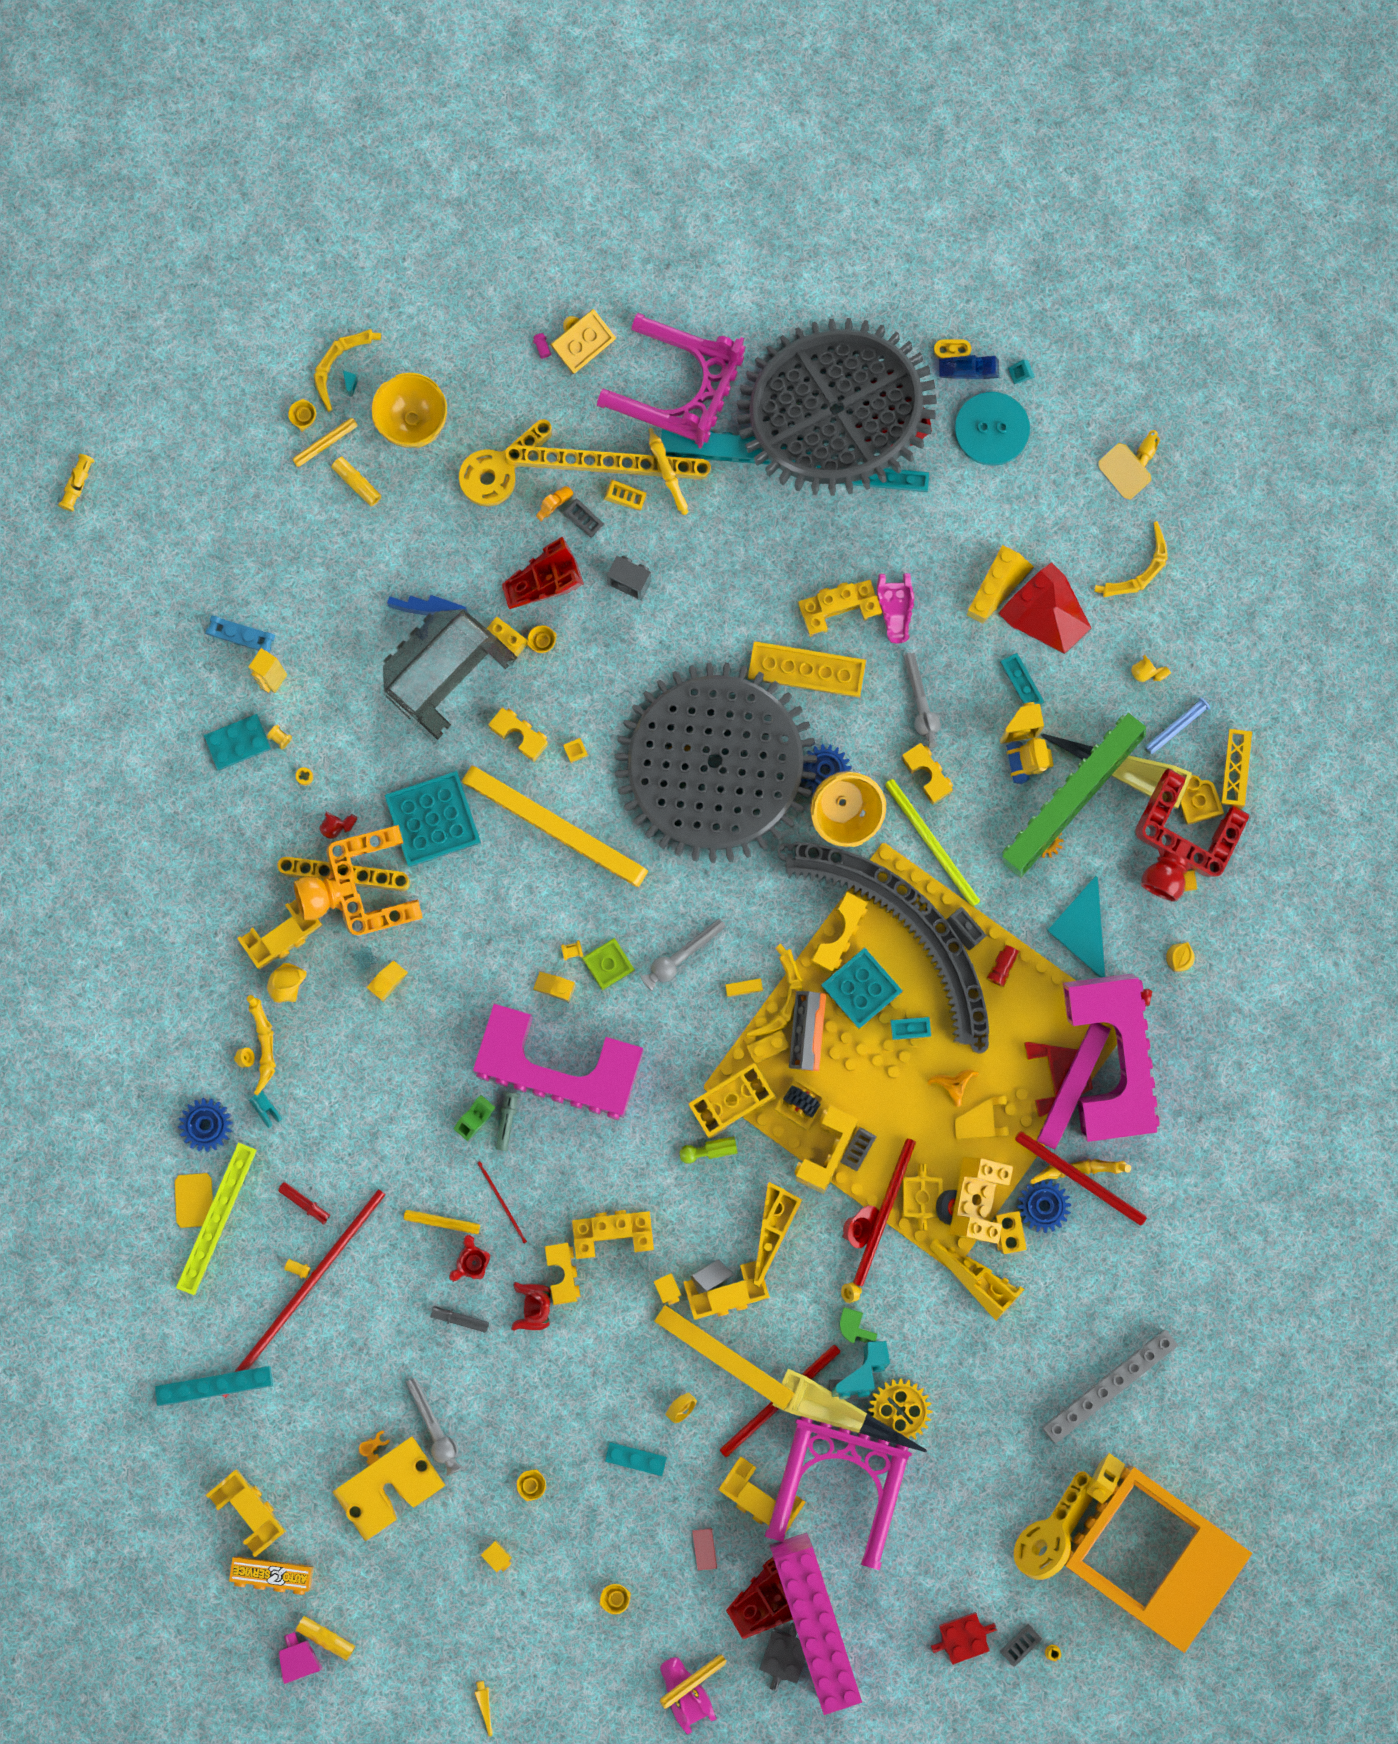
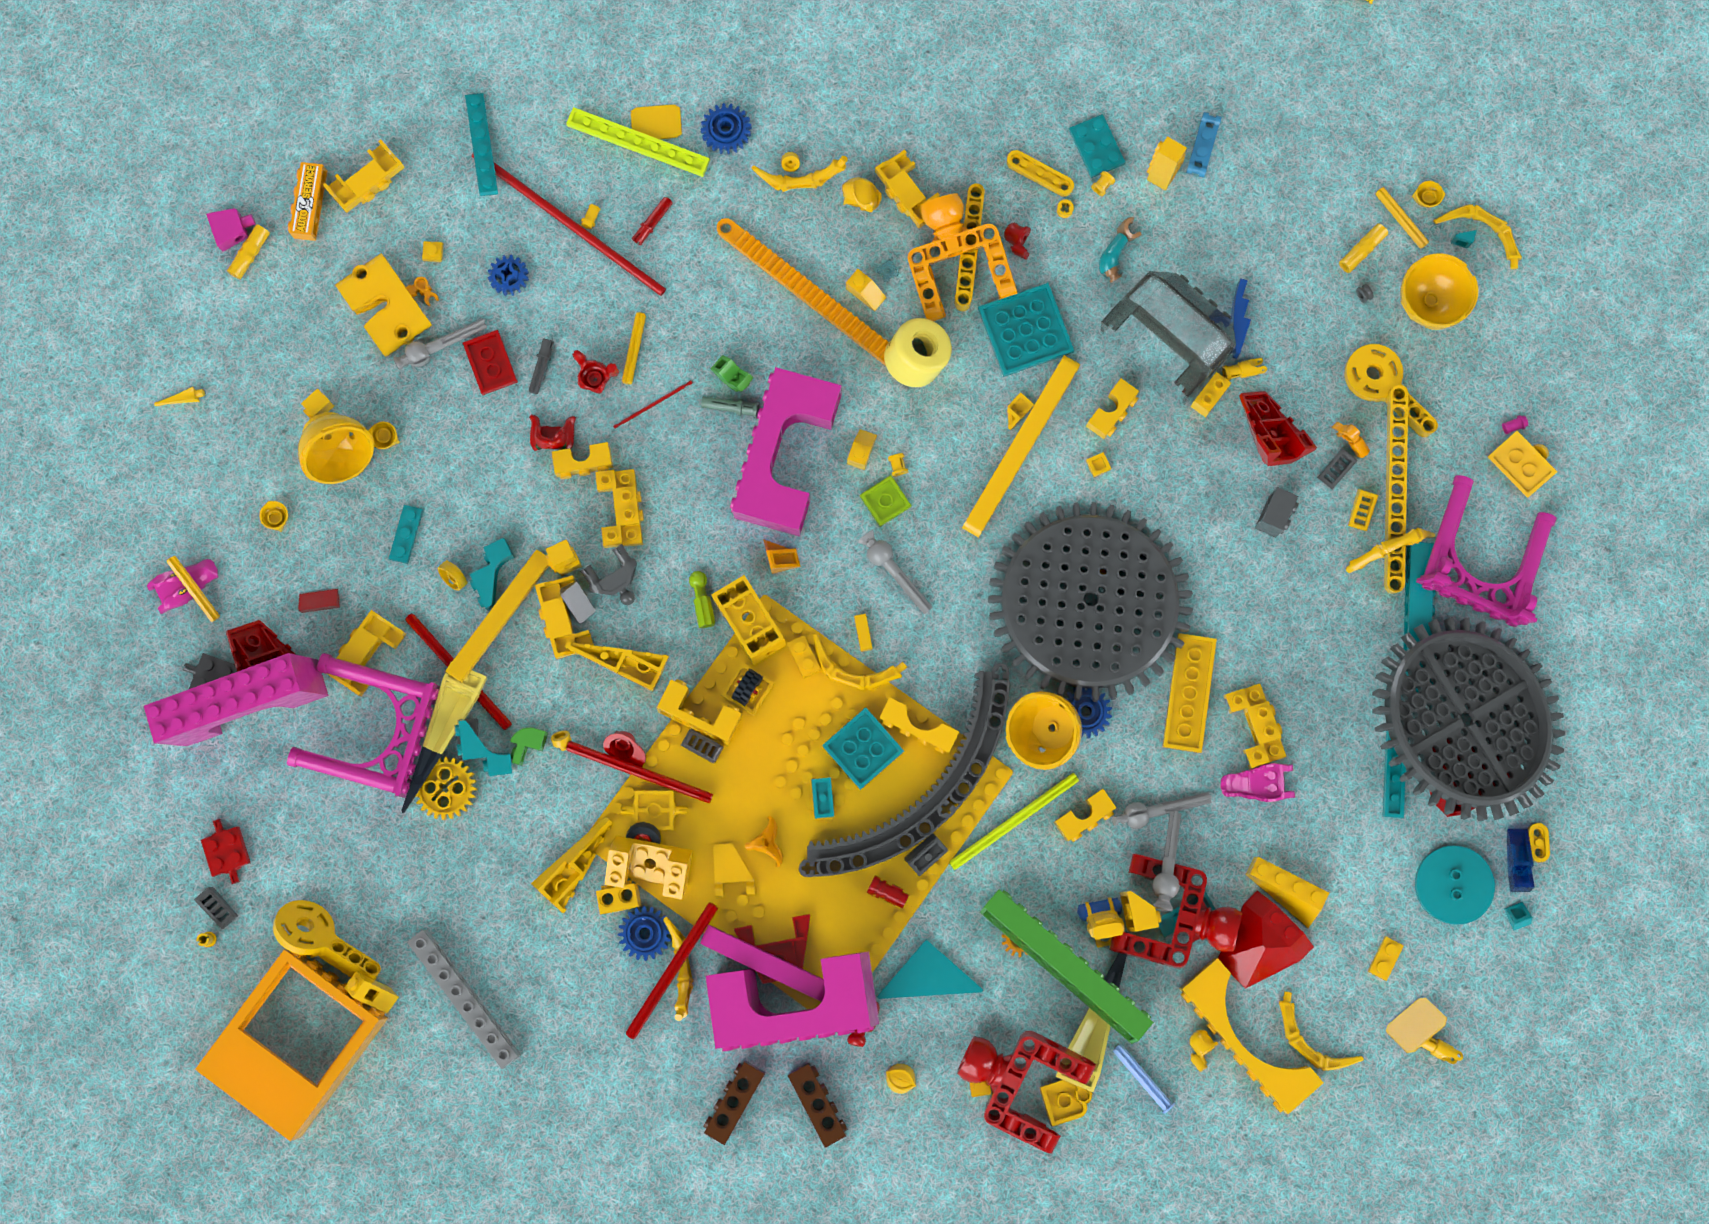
camera: 90 degrees right, 0 degrees up
(263, 1105) = (744, 179): teal hinge -> none
(265, 800) = (1040, 173): none -> yellow plate
(330, 1438) = (432, 251): none -> yellow plate
(358, 1364) = (504, 267): none -> blue gear
(360, 732) = (1109, 259): none -> piece
(395, 1029) = (804, 289): none -> light orange gear
(404, 482) = (1364, 293): none -> dark grey bush
(454, 1373) = (490, 362): none -> red plate
(468, 940) = (908, 365): none -> light yellow piece
(480, 604) = (1244, 369): none -> yellow piece
(515, 828) = (1018, 409): none -> yellow slope
(541, 639) = (1210, 429): yellow hat -> none
(546, 1532) = (329, 452): none -> yellow piece
(665, 1070) = (781, 557): none -> light orange slope
(686, 1373) = (486, 578): none -> teal arch
(689, 1237) = (617, 580): none -> dark grey connector
(807, 1031) = (818, 693): dark grey piece -> none
(996, 697) = (1166, 884): none -> light grey piece
(1030, 669) = (1197, 921): none -> red piece
(1062, 496) = (1385, 958): none -> yellow plate
(1097, 663) = (1284, 1085): none -> yellow arch
(1177, 1044) = (827, 1135): none -> reddish brown brick
(1234, 1127) = (722, 1132): none -> reddish brown brick
(1242, 770) = (1096, 1147): yellow fence -> none

